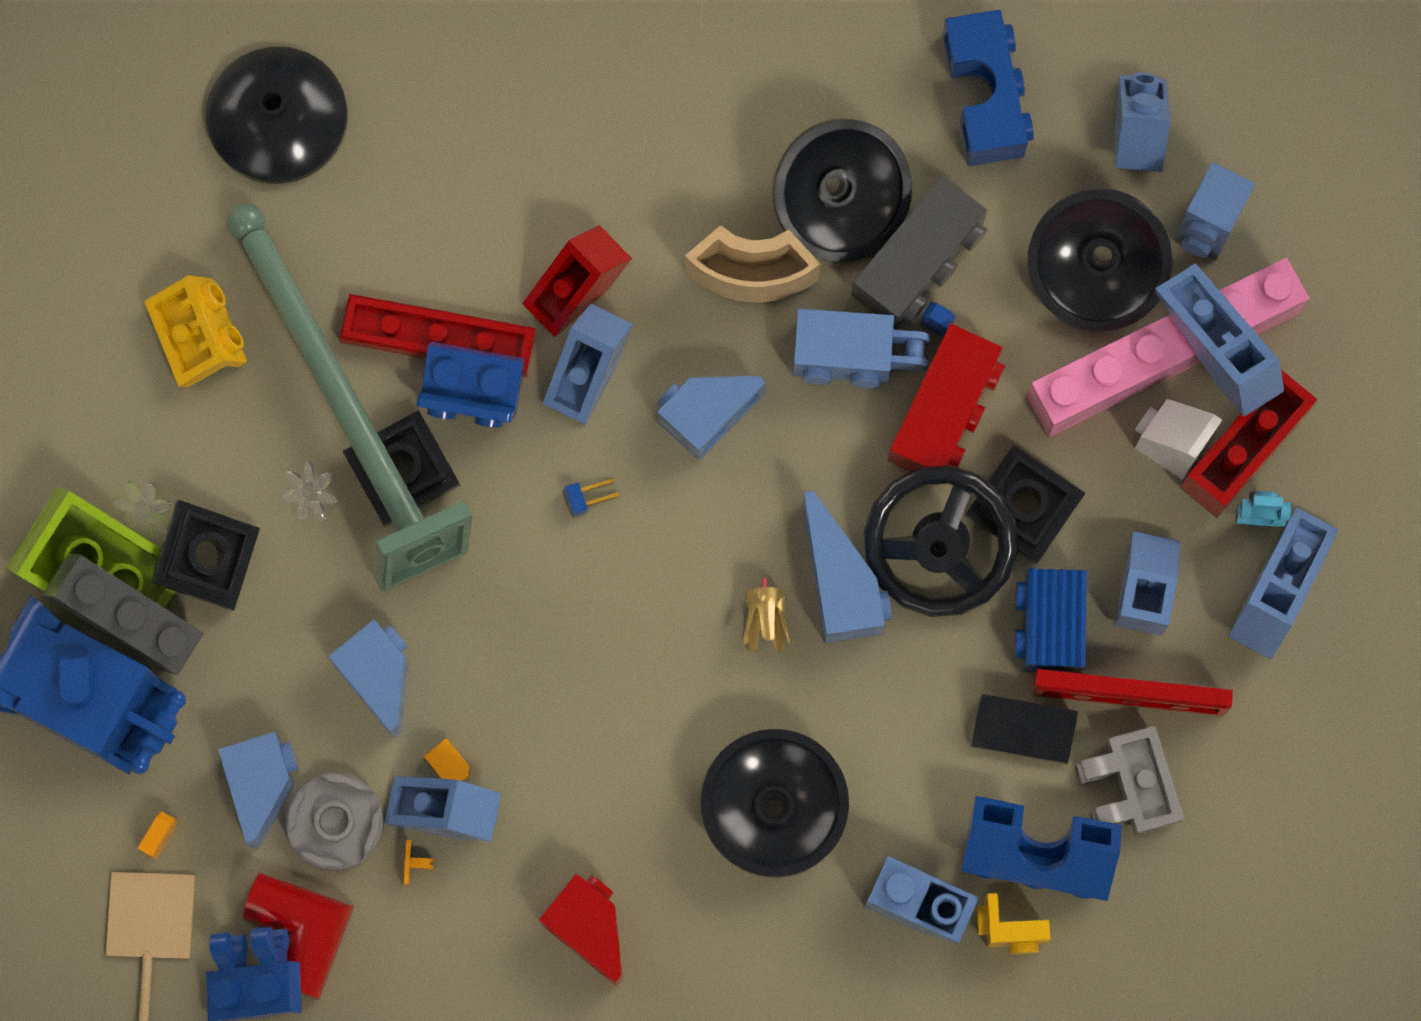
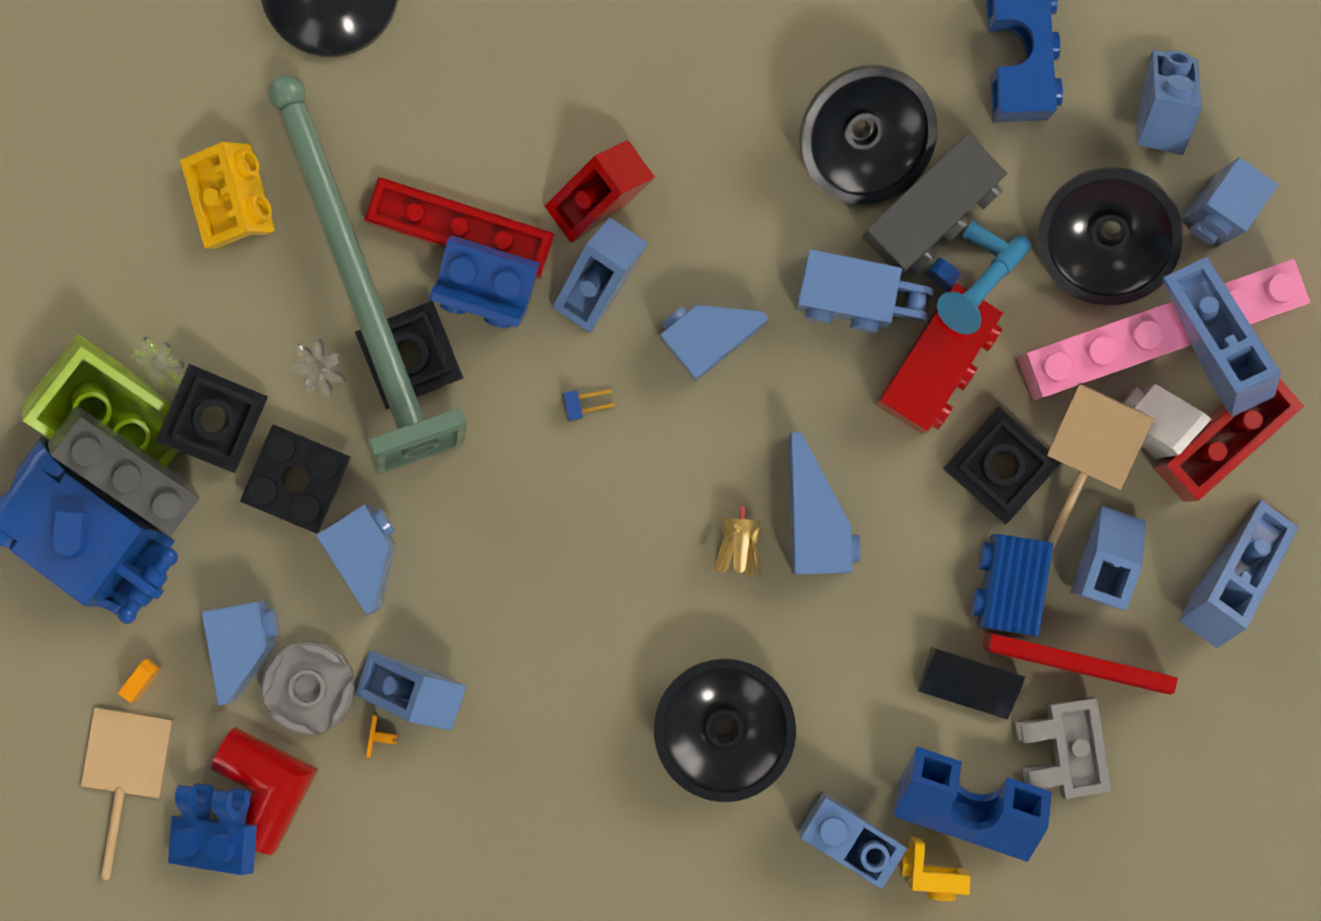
camera: 10 degrees right, 10 degrees up
(290, 579) = (267, 485): none -> black piece
(448, 762) = (421, 646): light orange piece -> none
(587, 924) = (534, 820): red slope -> none
(752, 269) = (770, 202): tan brick -> none
(940, 541) = (916, 494): black piece -> none
(957, 346) = (961, 310): none -> dark azure piece
(1117, 461) = (1099, 441): none -> tan piece
(1263, 509) = (1231, 502): medium azure piece -> none

